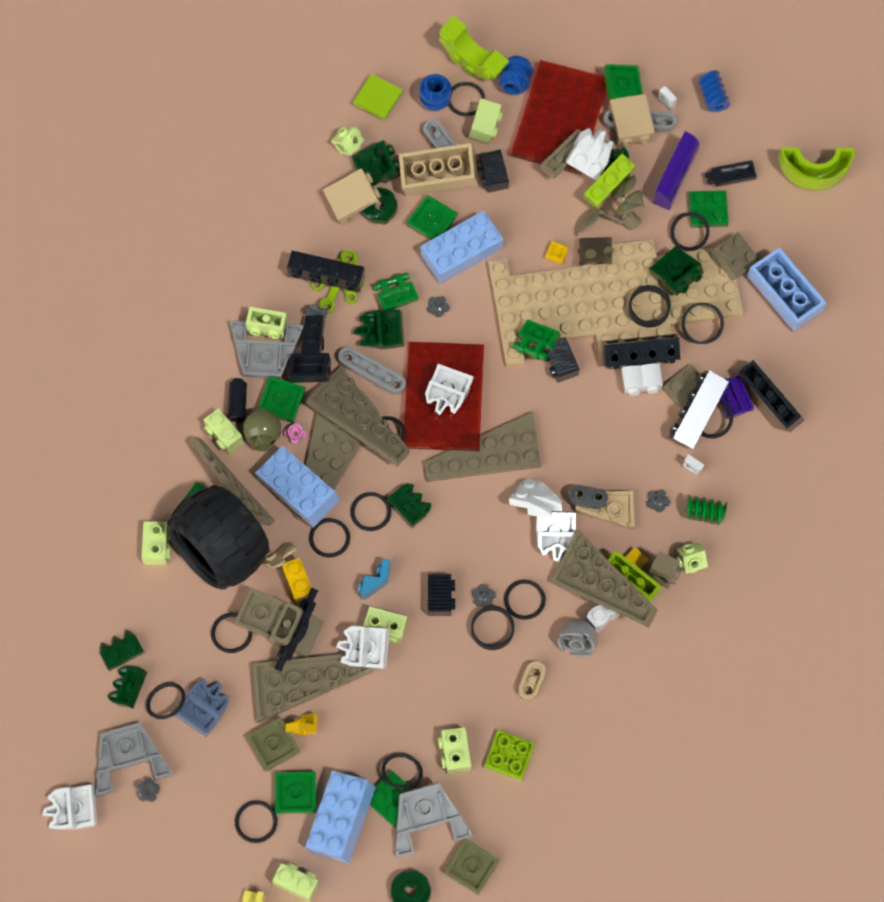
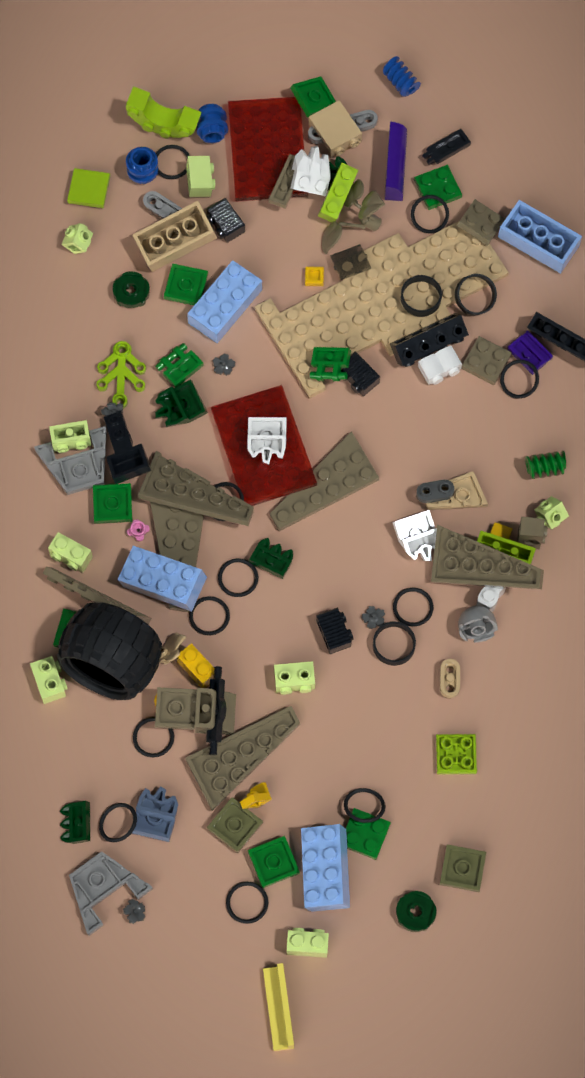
camera: 20 degrees left, 0 degrees up
(72, 808) = (70, 954): white plate -> none
(121, 651) = (56, 792): dark green plate -> none
(237, 400) = (71, 519): black brick -> none
(262, 429) = (107, 537): olive brick -> none
(326, 271) = (107, 368): black brick -> none
(352, 195) = (102, 288): tan panel -> none
(365, 647) = (286, 703): white plate -> none
(372, 370) = (186, 446): light grey plate -> none
(373, 584) = (268, 643): dark azure slope -> none
(379, 162) = (114, 251): dark green plate -> none
(423, 809) = (398, 832): light grey wing -> none
(456, 750) = (405, 767): yellowish green brick -> none
(535, 497) = (388, 509): white plate -> none
(657, 500) = (498, 472): dark grey plant -> none
(667, 98) = (360, 97): white tile -> none
(677, 271) = (434, 254): dark green plate -> none
(693, 465) = (518, 428): white tile -> none
(698, 409) = (503, 375): brick -> none
(813, 175) = (522, 123): lime brick -> none

